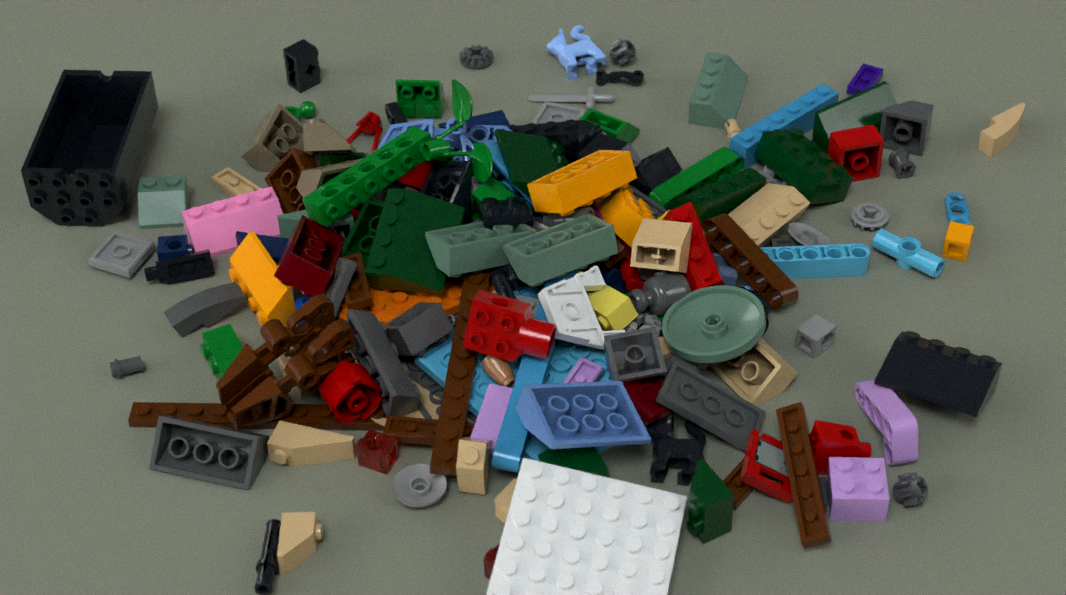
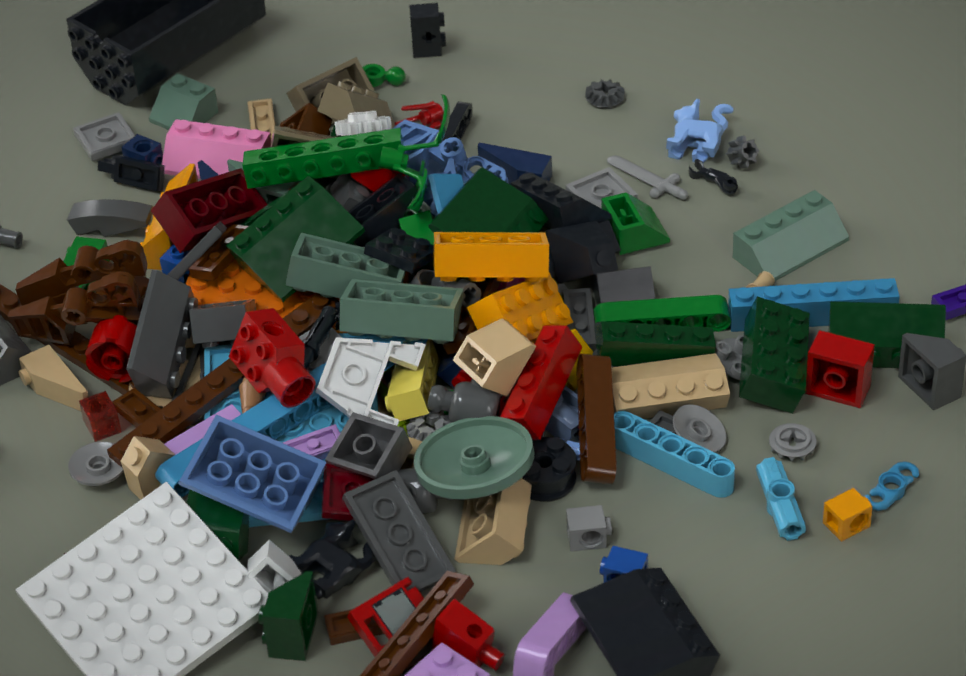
camera: 40 degrees right, 0 degrees up
(365, 142) = (362, 123): none -> white gear
(420, 98) = (496, 111): green slope -> none
(660, 477) = (271, 567): none -> white slope
(871, 348) = (622, 561): none -> blue brick
(900, 160) = (890, 405): dark grey bush -> none

